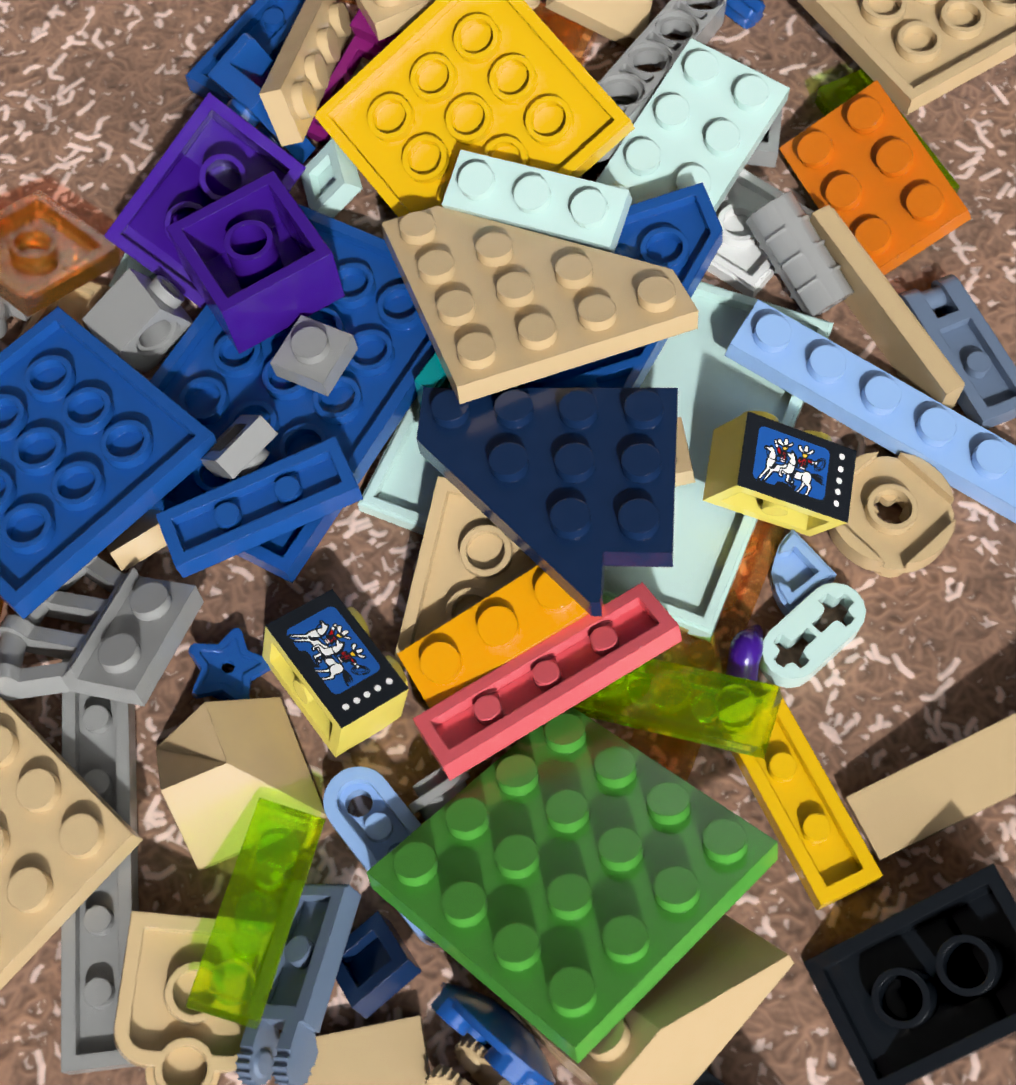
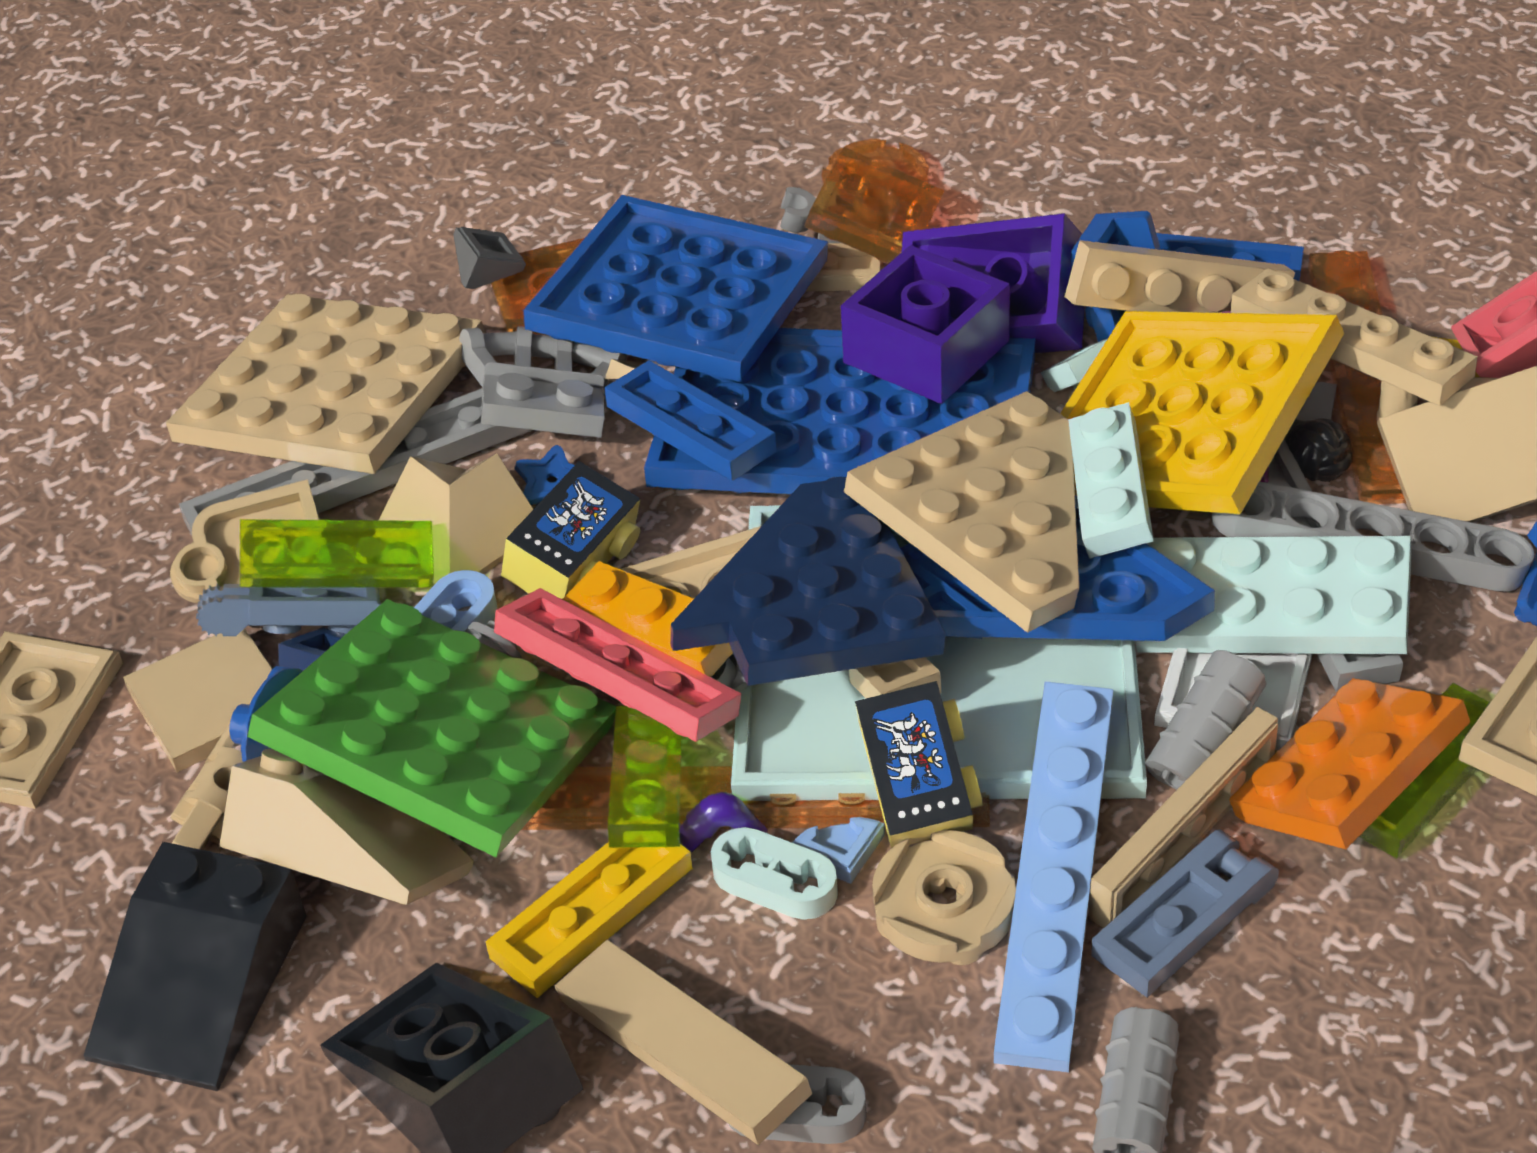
camera: 70 degrees right, 20 degrees down
(139, 319) = (832, 286): light grey brick -> none
(240, 447) = (739, 386): light grey plate -> none
(314, 355) = (865, 405): light grey plate -> none

